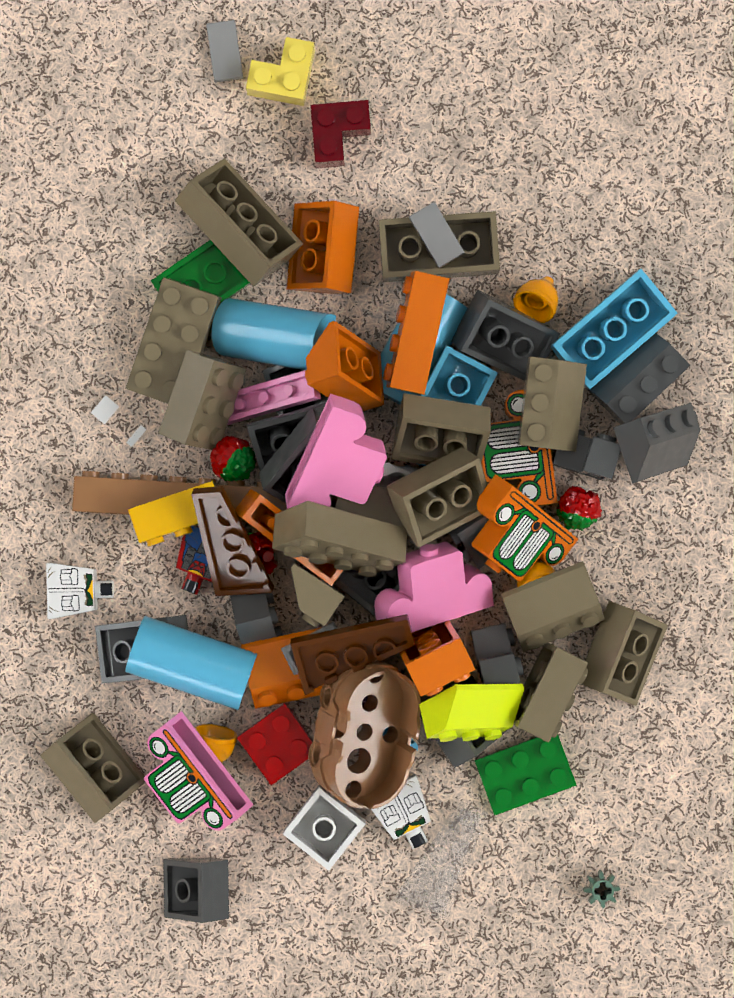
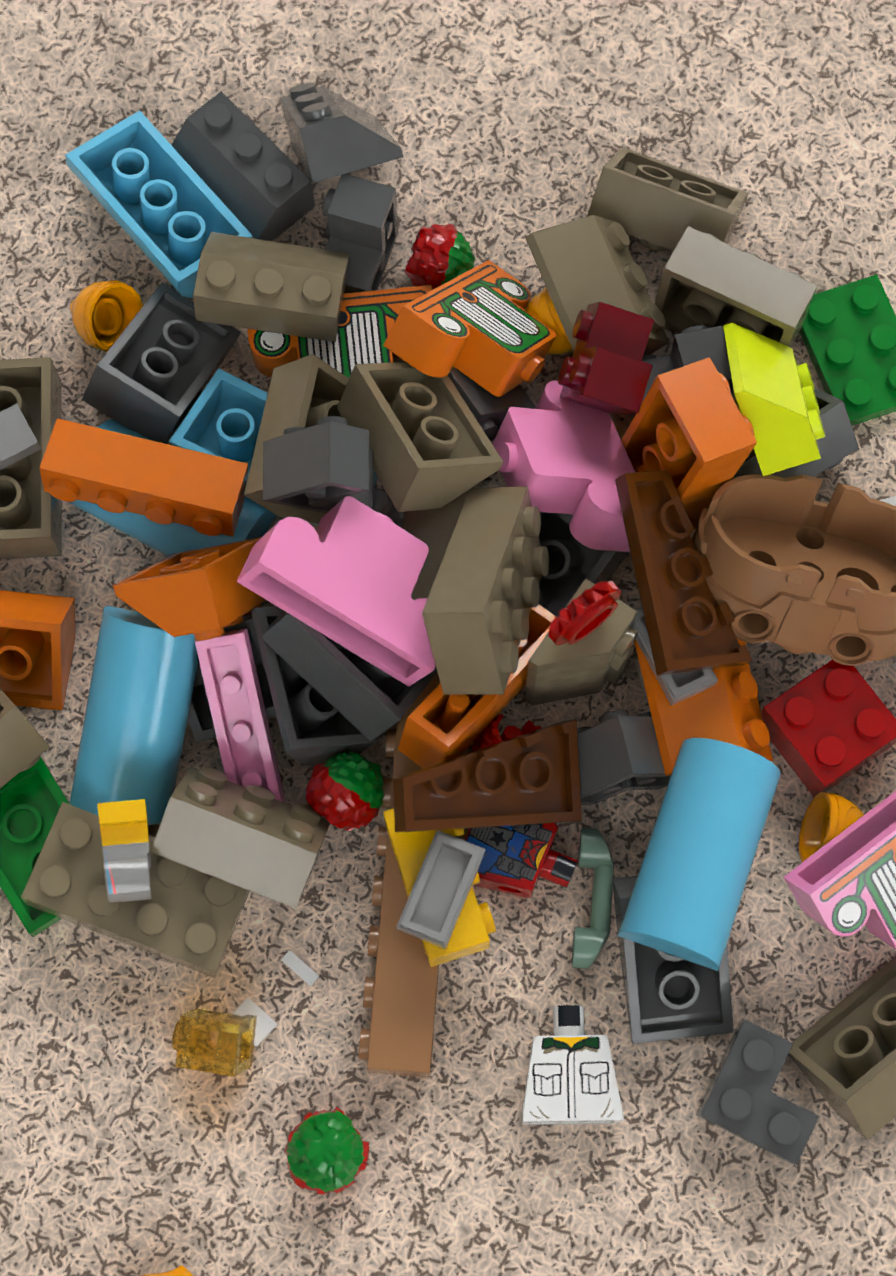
camera: 85 degrees left, 15 degrees down
(30, 454) = (326, 1152): none -> green piece
(62, 687) = (743, 1100): none -> dark grey brick
(82, 386) = (198, 1052): none -> clear yellow brick
(150, 601) = (590, 941): none -> sand green bar
(166, 515) = (441, 889): none -> light grey tile
(186, 335) = (125, 850): none -> leg
(314, 594) = (584, 613): none -> red gear
(407, 439) = (318, 466): none -> dark grey brick
(489, 609) = (607, 360): none -> dark red brick

